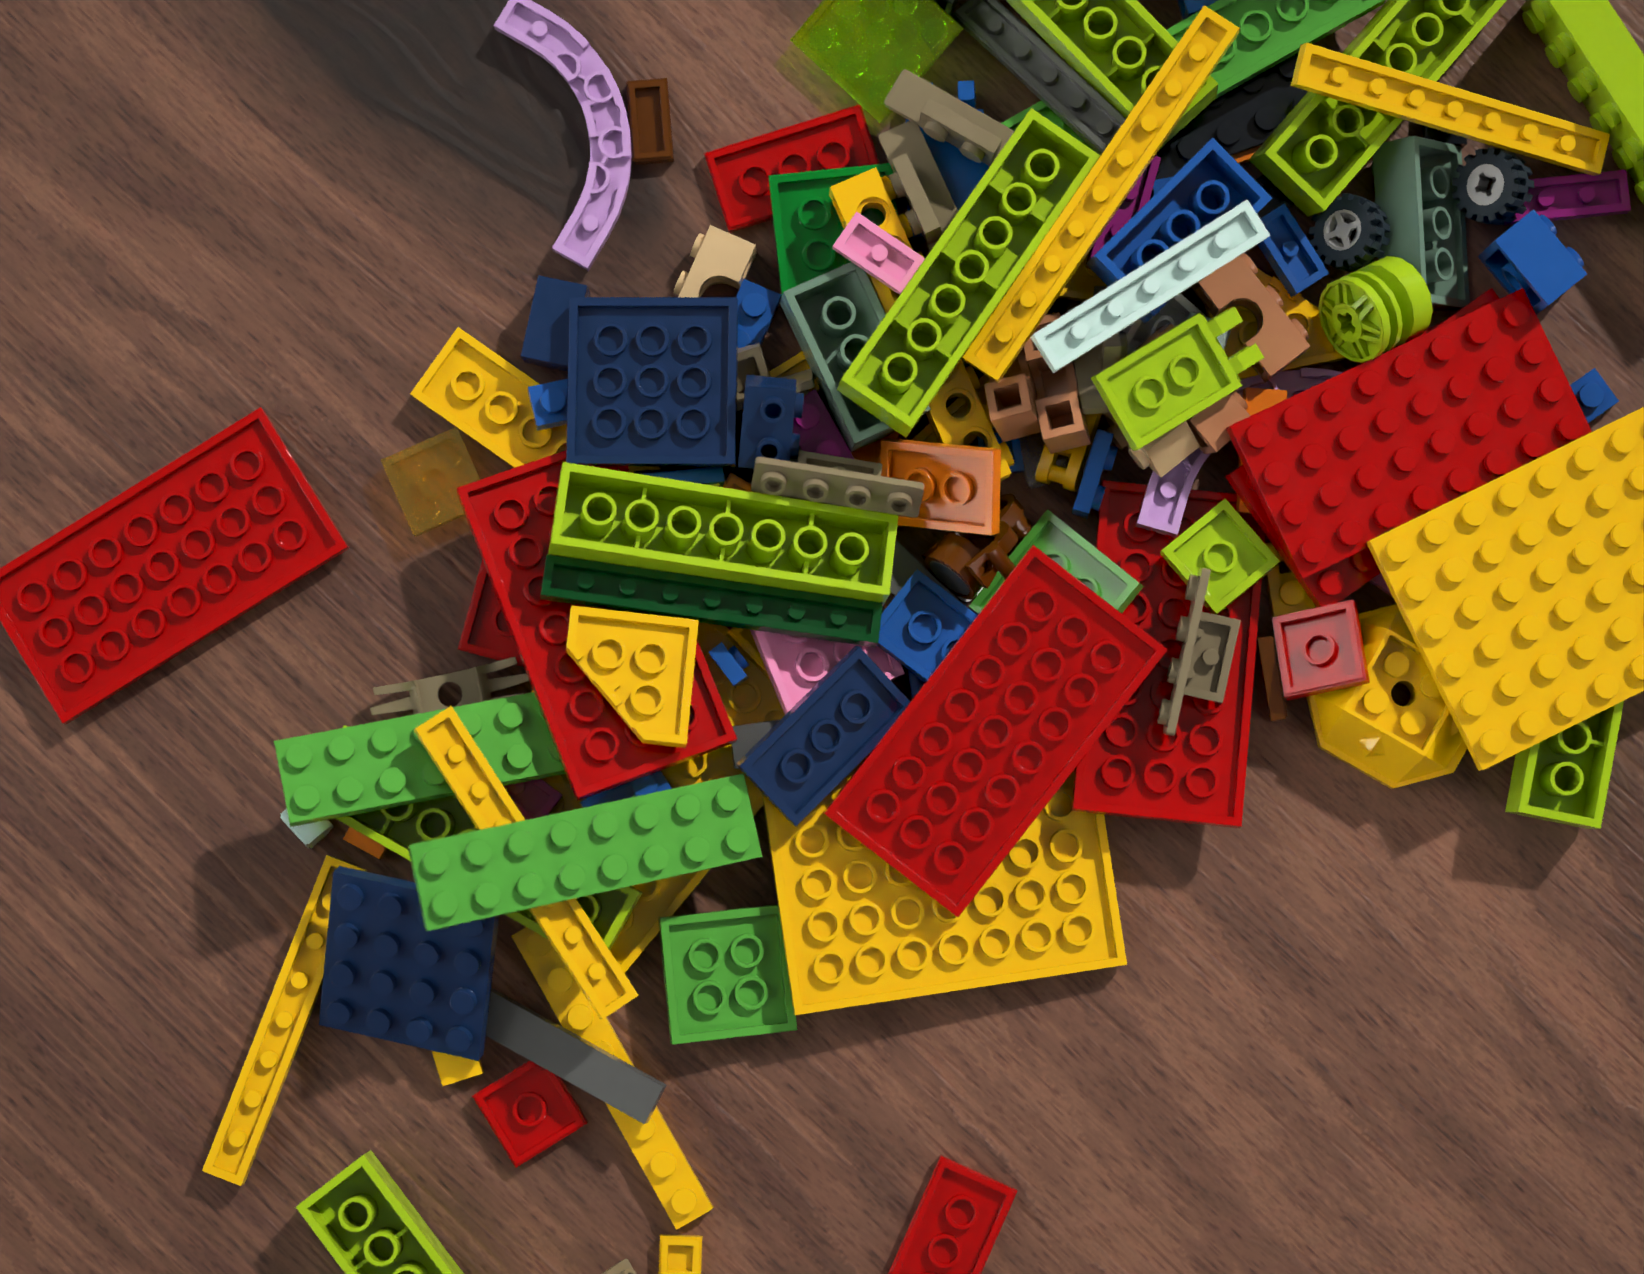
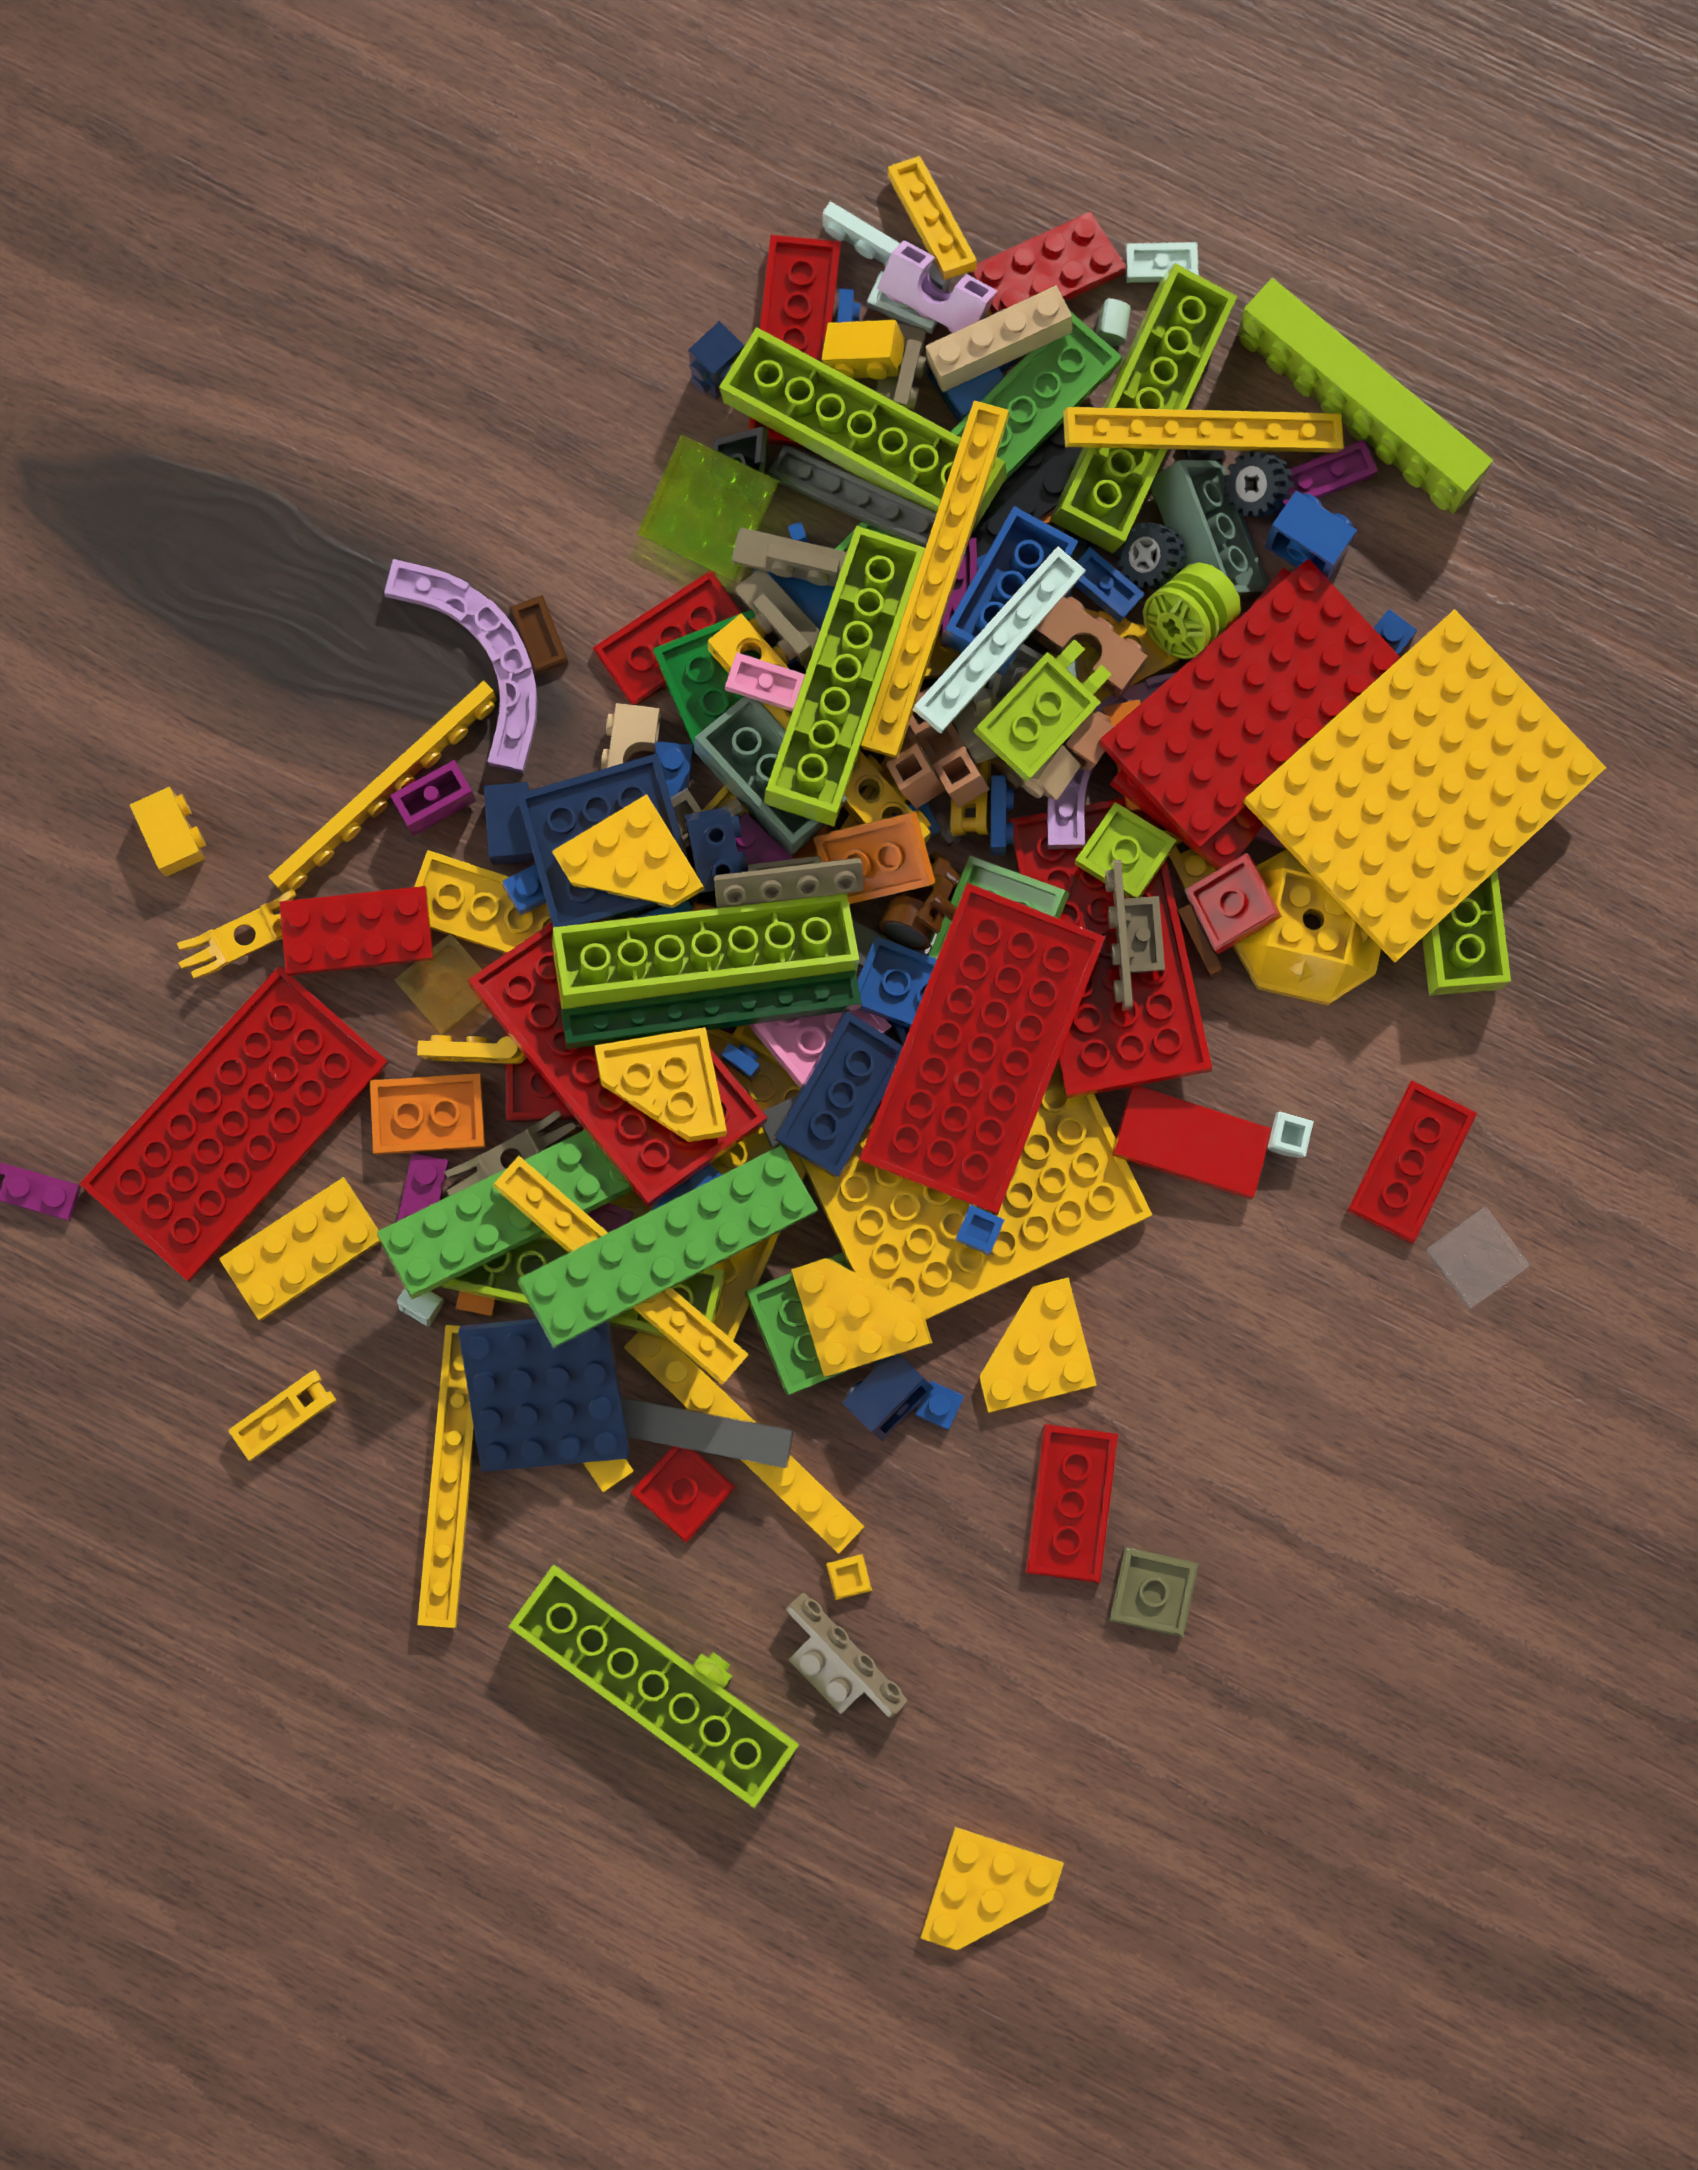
camera: 20 degrees left, 5 degrees down
(121, 900) = (281, 1416): none -> yellow plate
(183, 222) = (168, 831): none -> yellow brick
(196, 724) = (301, 1249): none -> yellow plate
(208, 362) = (223, 943): none -> yellow piece
(345, 697) = (423, 1184): none -> magenta plate
(354, 394) = (356, 930): none -> red plate
(374, 617) = (427, 1114): none -> orange plate
(416, 251) = (374, 797): none -> yellow plate
(443, 563) = (474, 1050): none -> yellow plate
(480, 271) = (433, 798): none -> magenta brick
(673, 406) = (630, 858): none -> yellow plate
(769, 984) = (855, 1317): none -> yellow plate
(779, 1074) = (887, 1395): none -> dark blue brick
(833, 1100) = (940, 1406): none -> blue plate
(932, 928) = (979, 1230): none -> blue plate
(959, 1075) = (1040, 1351): none -> yellow plate
(1195, 897) = (1192, 1142): none -> red tile
(1305, 921) = (1290, 1135): none -> light aqua brick
(1429, 989) = (1411, 1162): none -> red tile
(1468, 1115) = (1477, 1257): none -> clear tile

